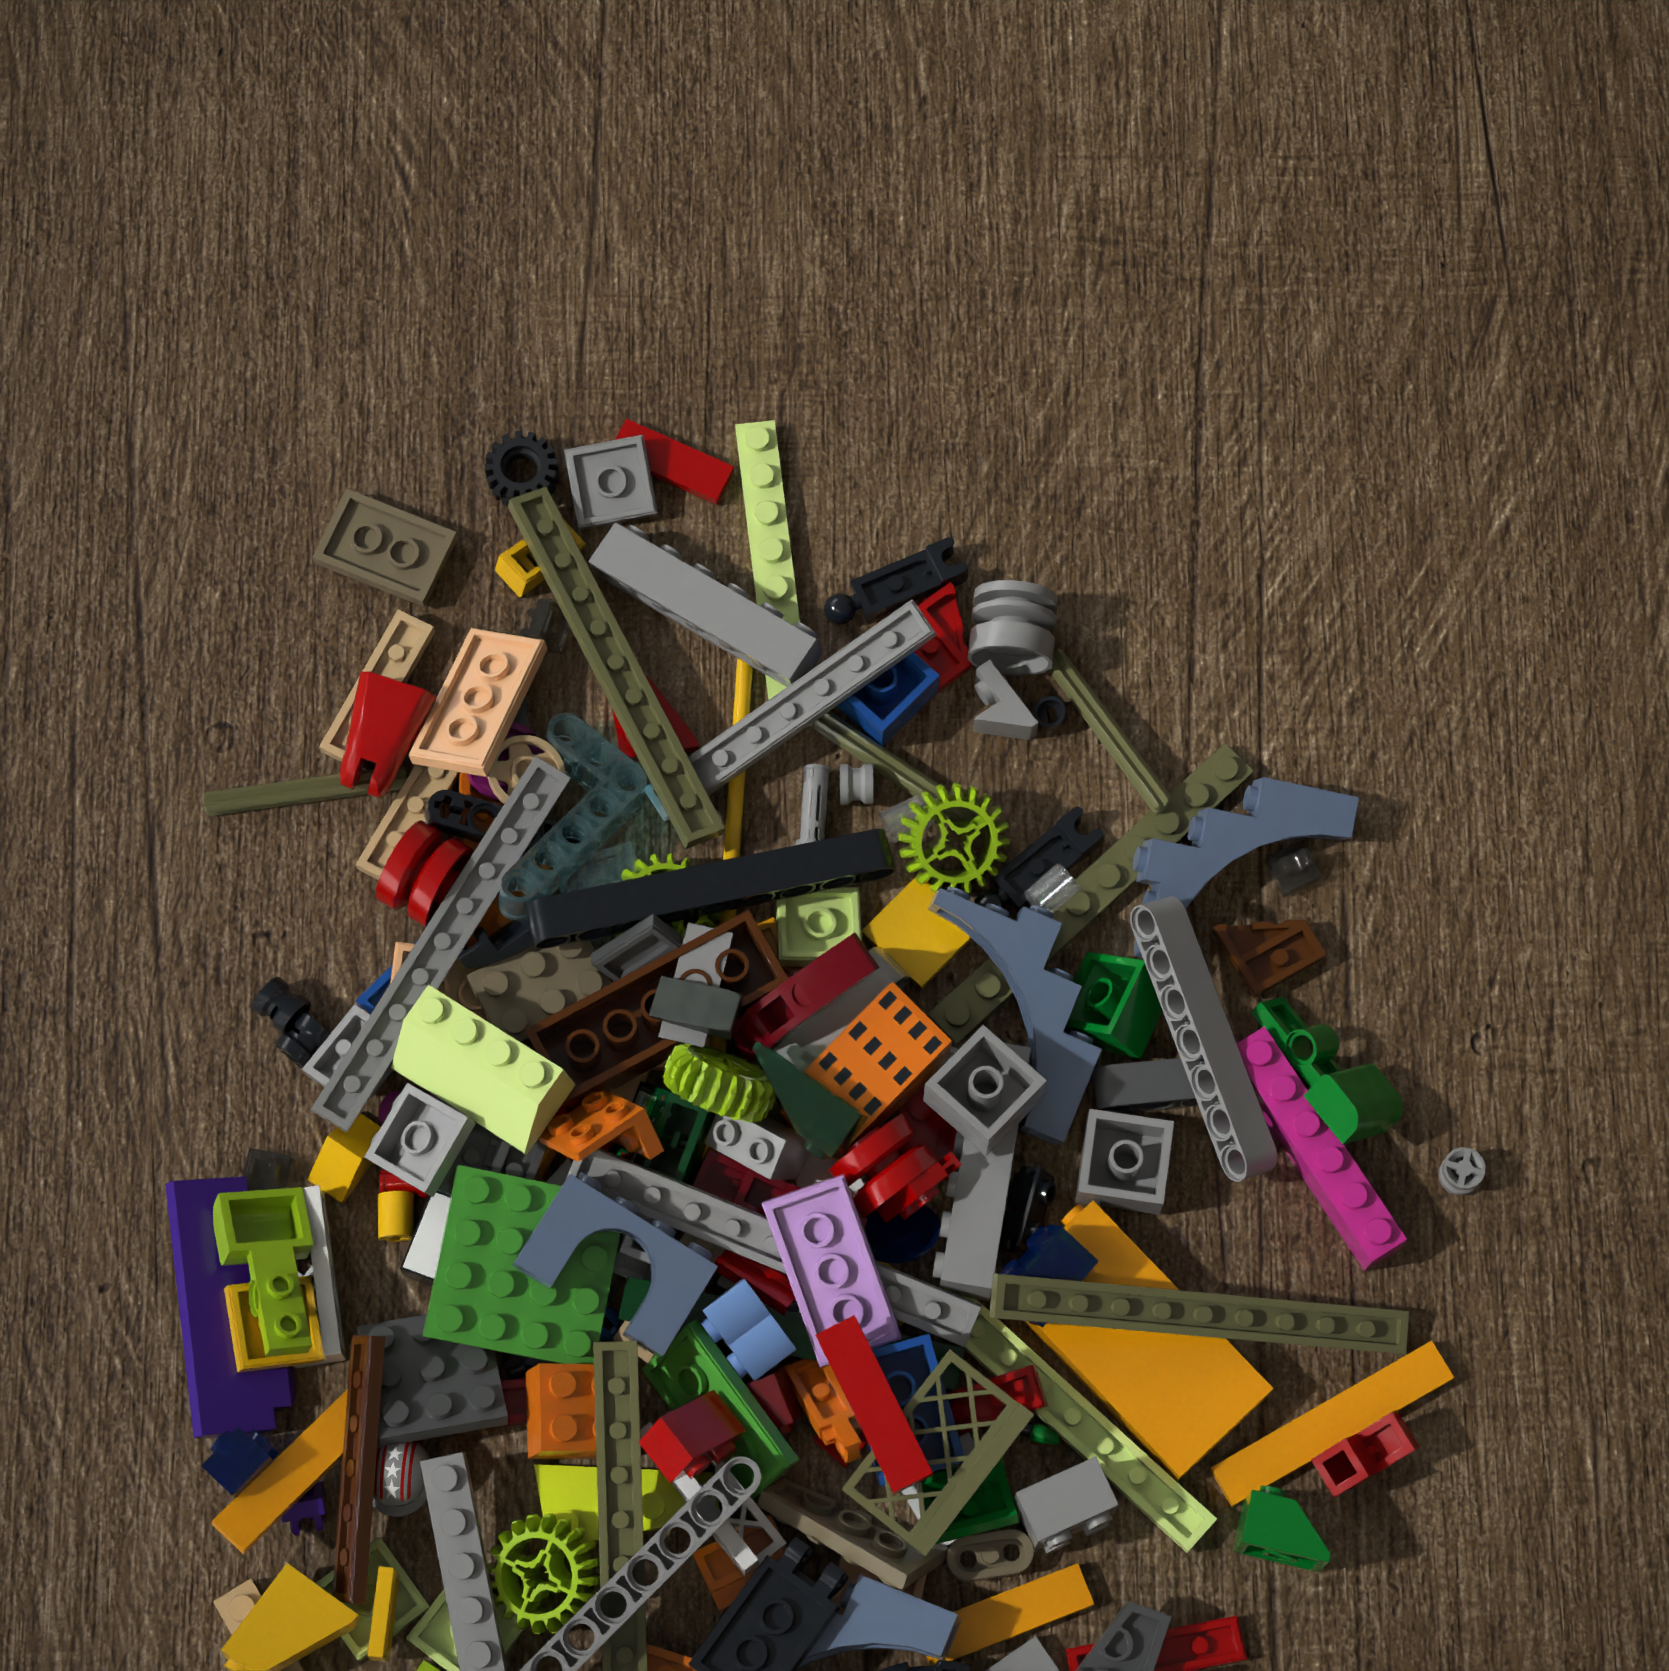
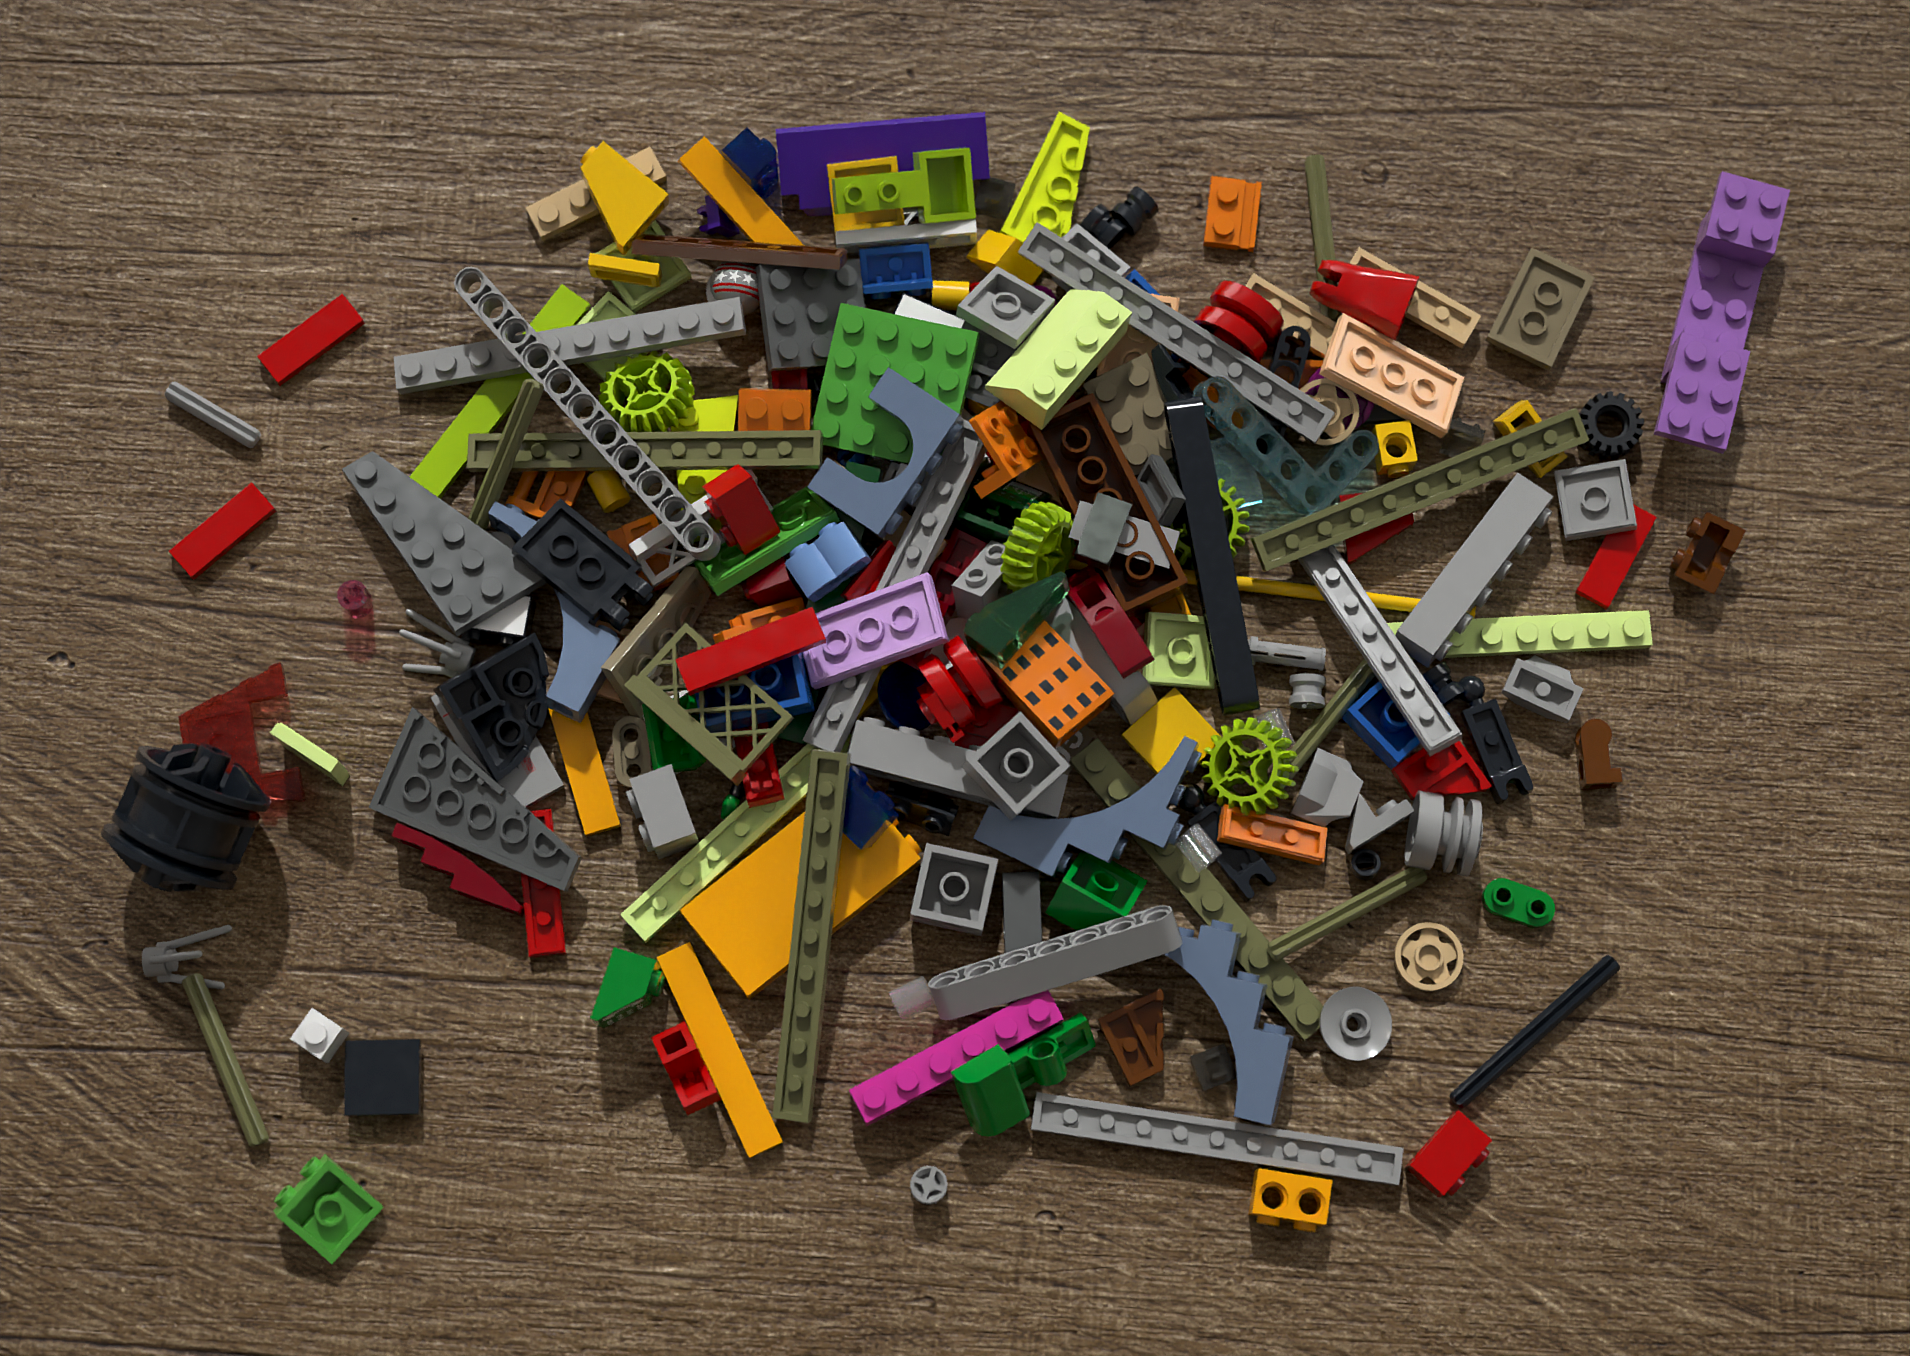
camera: 90 degrees right, 5 degrees up
(250, 1106) = (1051, 182): none -> neon yellow wing
(278, 895) = (1232, 214): none -> orange plate
(367, 1282) = (896, 269): none -> blue bracket
(387, 362) = (1715, 312): none -> medium lavender bracket
(551, 687) = (1396, 434): none -> yellow brick
(665, 1614) = (608, 490): none -> yellow piece
(666, 364) = (1707, 551): none -> reddish brown cylinder
(832, 531) = (1542, 688): none -> light grey slope
(835, 638) = (1442, 684): none -> black wheel
(906, 478) = (1594, 757): none -> reddish brown leg
(968, 756) = (1327, 790): none -> light grey slope
(1026, 813) = (1272, 835): none -> orange tile
(1078, 552) = (1519, 903): none -> green plate
(1145, 645) = (1428, 956): none -> tan wheel
(1218, 532) = (1534, 1031): none -> black axle
(1234, 701) = (1372, 1019): none -> light grey dish
(1250, 1204) = (911, 997): none -> clear piece
(1363, 614) = (1449, 1155): none -> red brick
(1373, 864) = (1217, 1139): none -> light grey plate
(1423, 777) = (1290, 1188): none -> light orange brick

